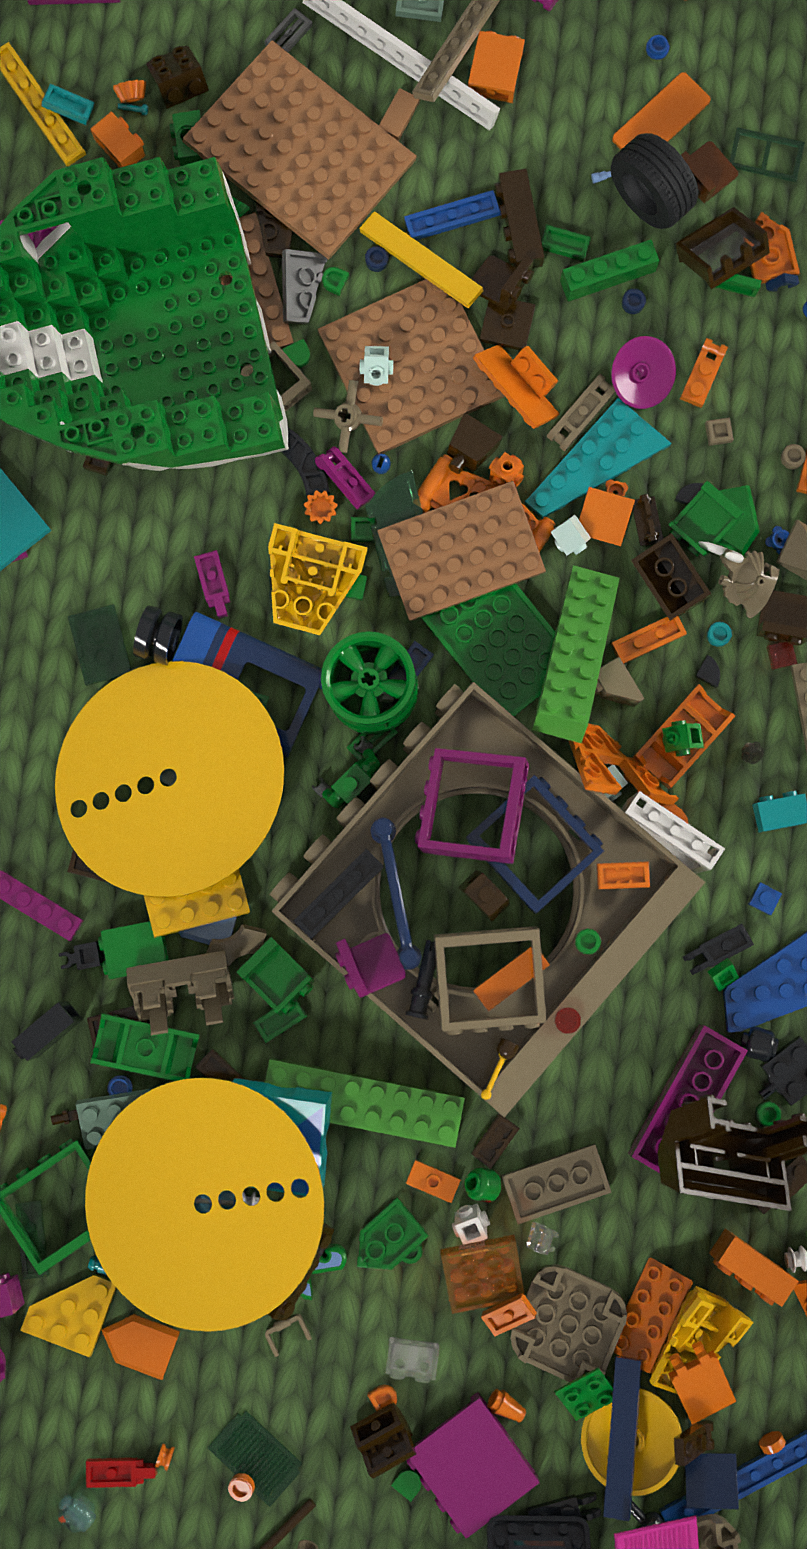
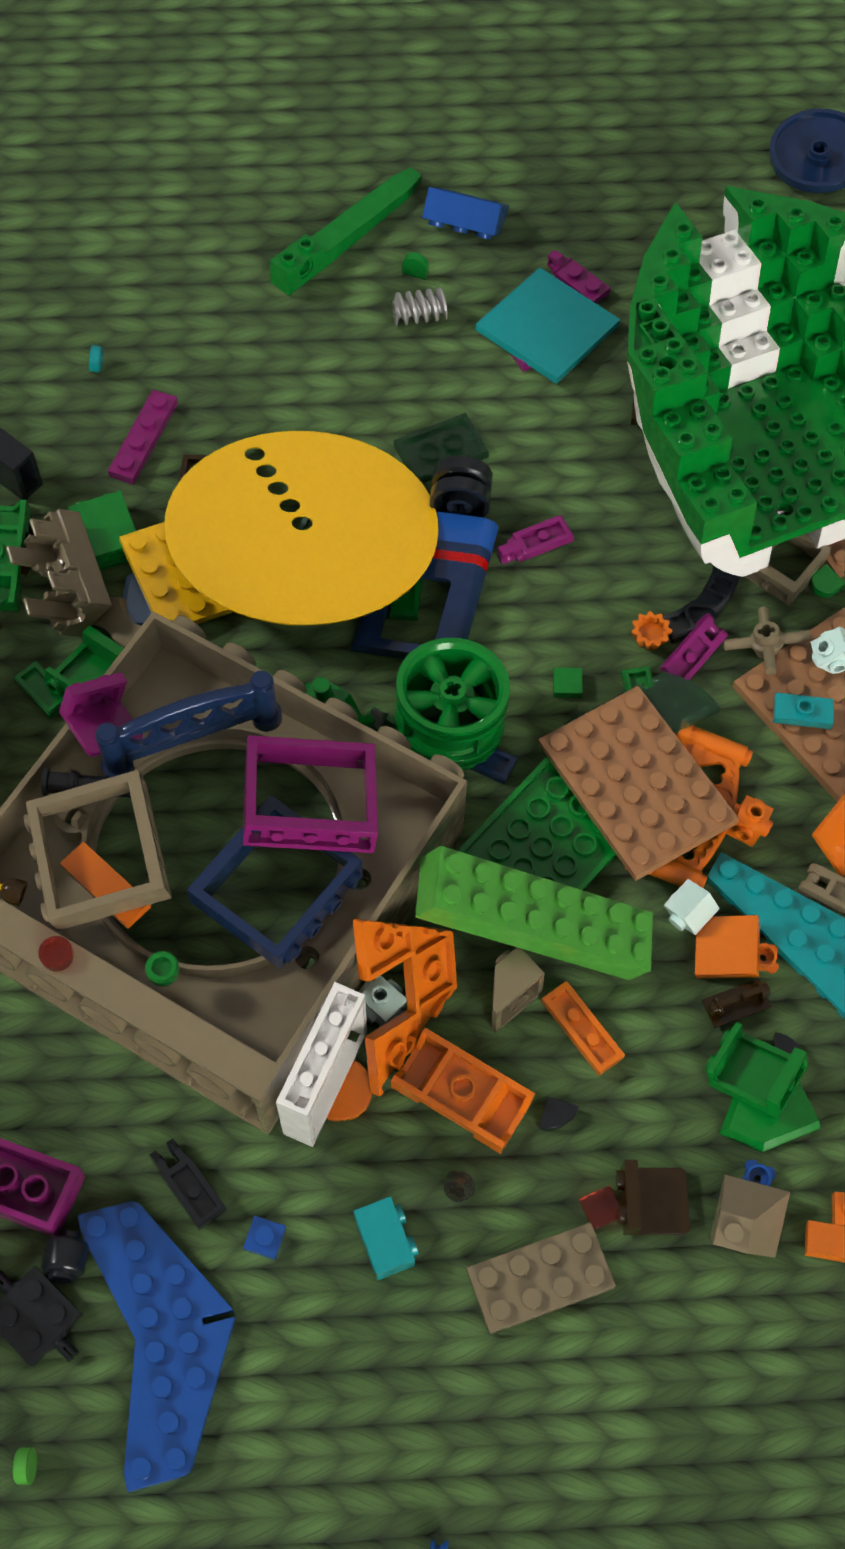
camera: 80 degrees right, 20 degrees down
(85, 956) = (91, 484): black plate -> none
(310, 577) = (565, 628): yellow wedge -> none
(338, 893) = (172, 669): black plate -> none
(385, 465) = (724, 691): blue hinge -> none
(419, 405) = (803, 710): none -> teal plate
(472, 444) = (772, 776): dark brown torso -> none
(484, 895) = (204, 829): dark brown torso -> none
(623, 875) = (252, 996): orange plate -> none
(671, 577) = (669, 1039): dark brown slope -> none
(682, 738) = (455, 1073): green brick -> none
(719, 634) = (610, 1120): teal tile -> none
(723, 974) = (153, 1194): green plate -> none
(746, 578) = (687, 1132): dark tan helmet -> none

